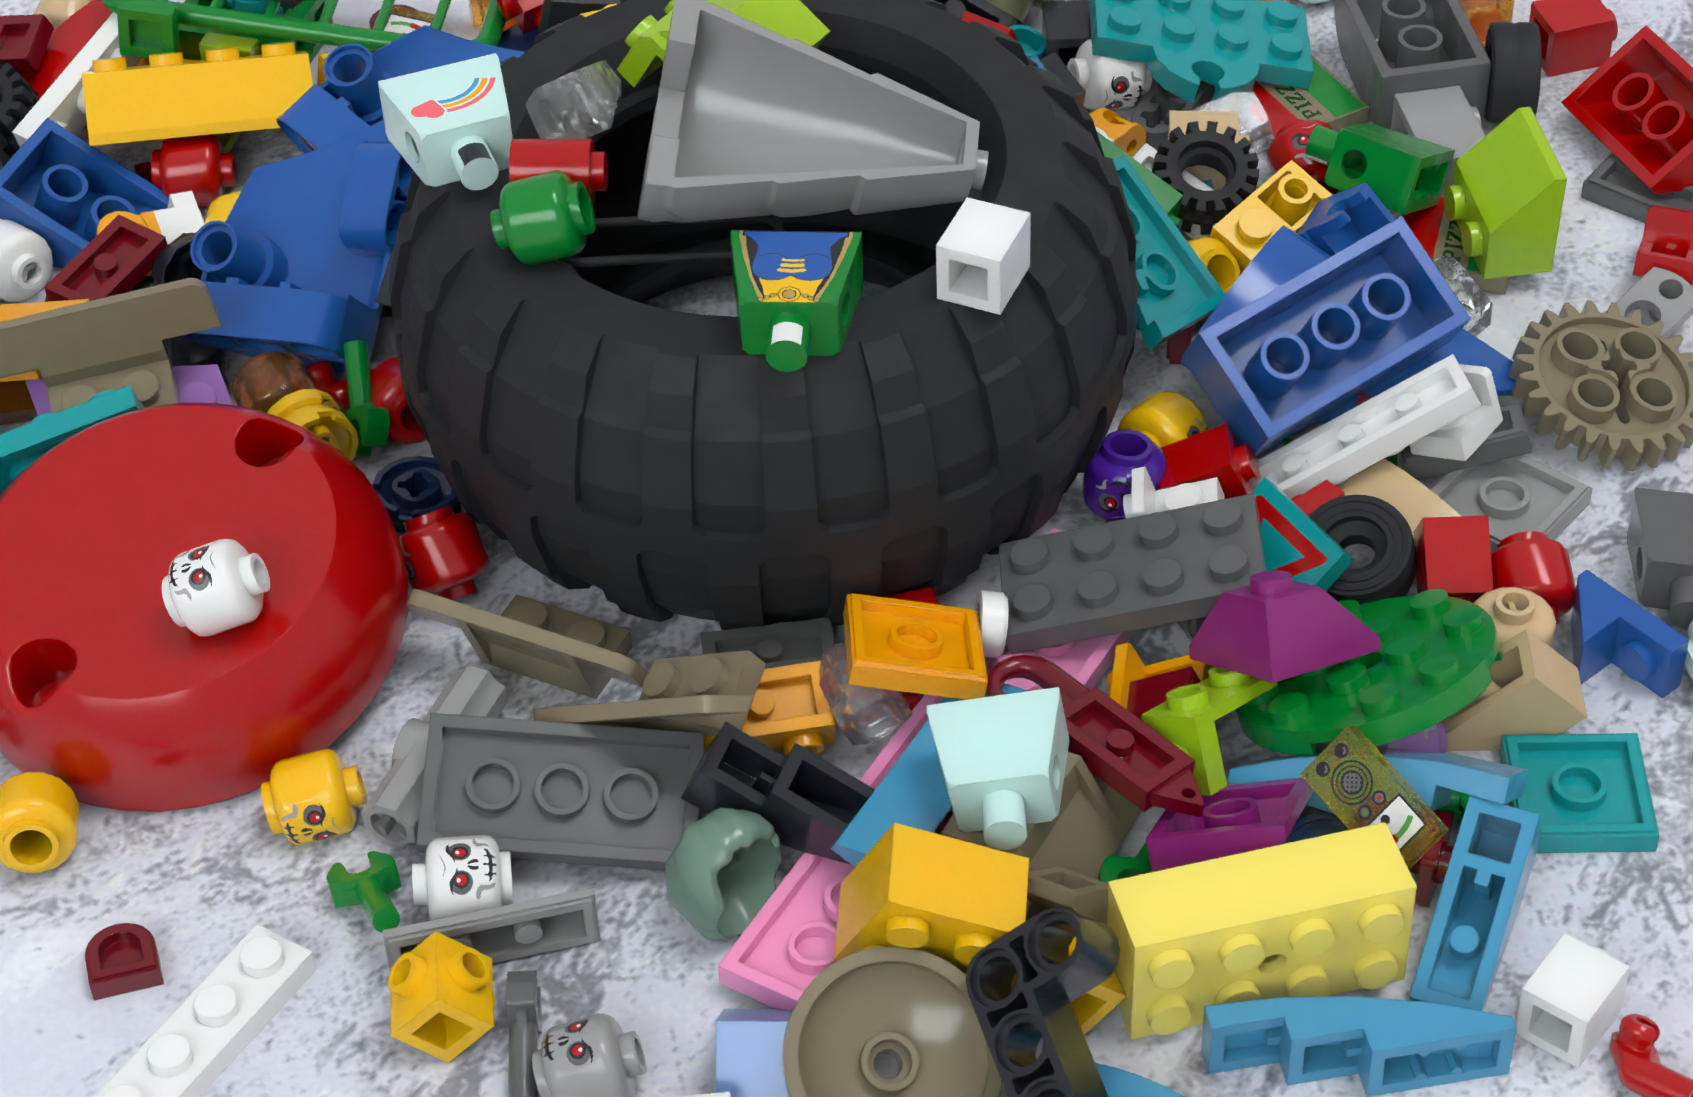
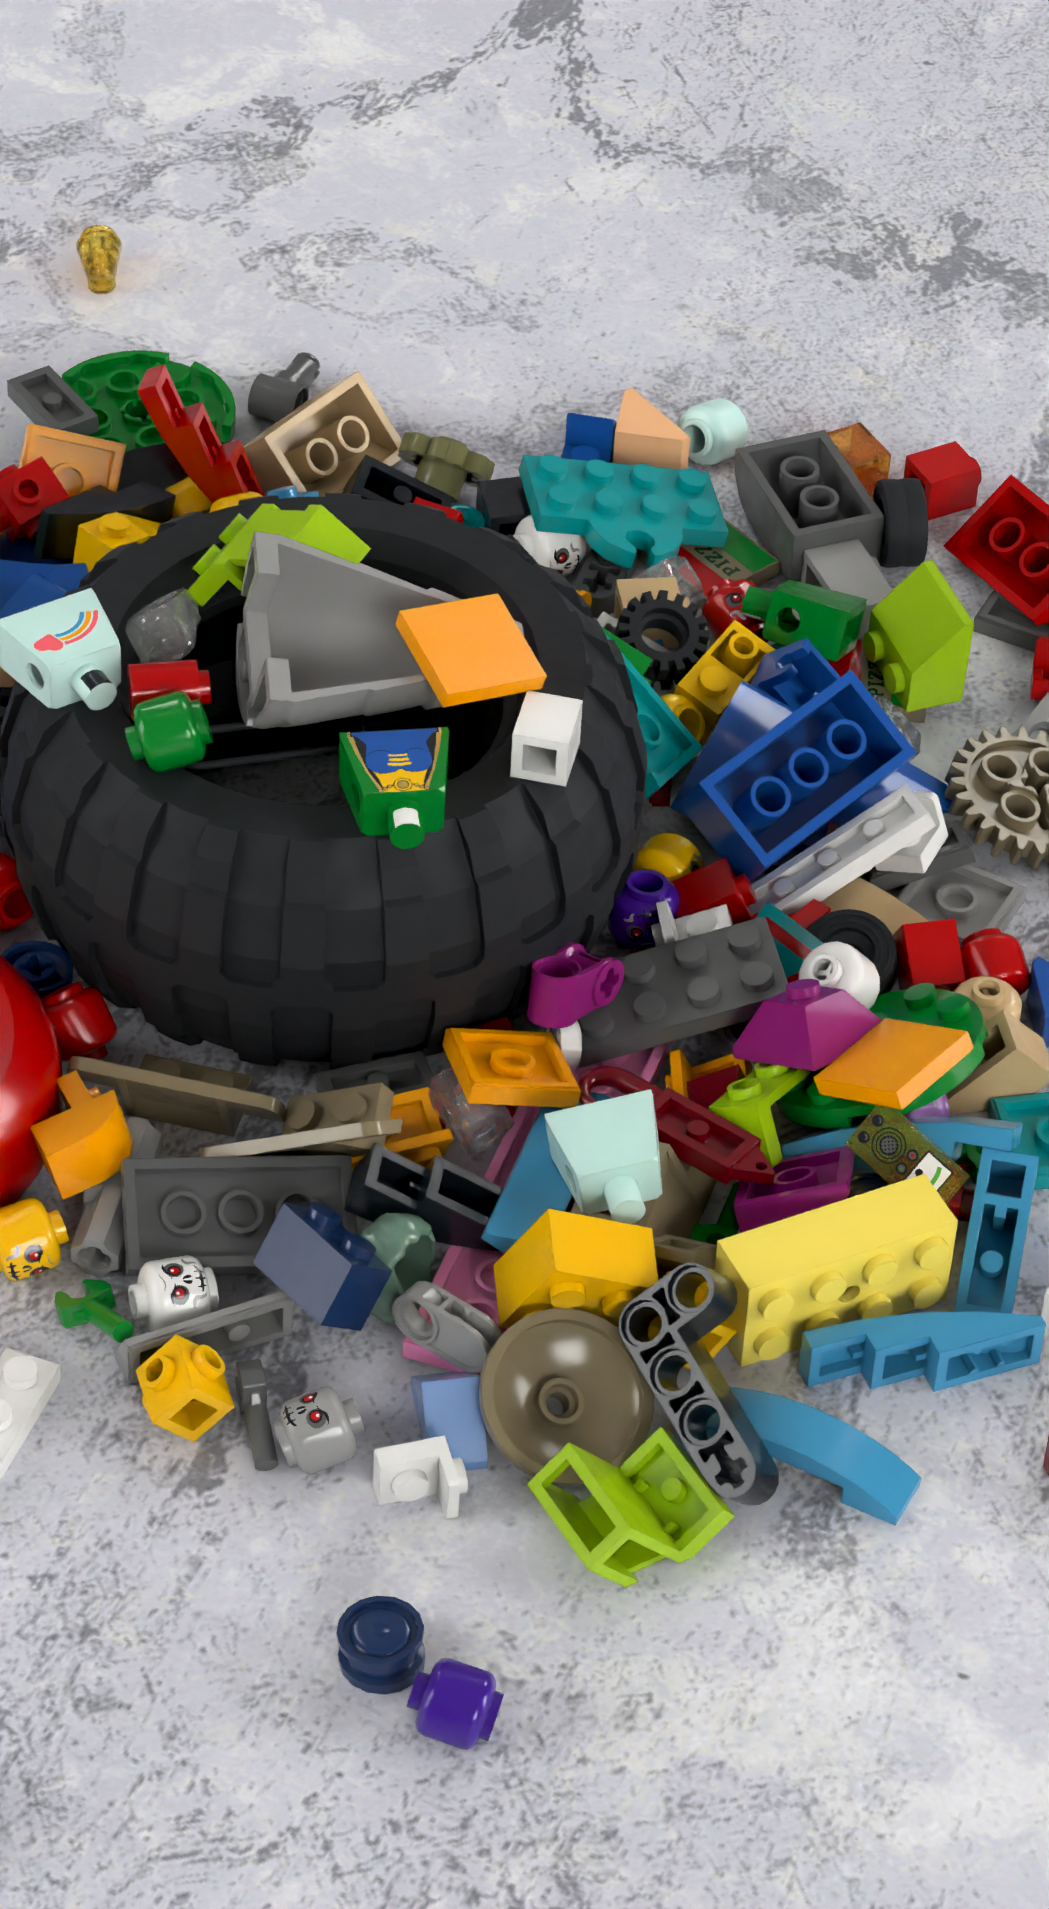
camera: 15 degrees left, 0 degrees up
(397, 688) = (85, 1140): none -> light orange brick
(632, 865) = (323, 1265): none -> dark blue brick
(763, 951) = (457, 1329): none -> light grey piece
(905, 145) = (470, 650): none -> light orange tile
(1004, 555) = (571, 986): none -> magenta piece
(1337, 567) = (843, 968): none -> white head
(1371, 682) = (894, 1063): none -> light orange tile

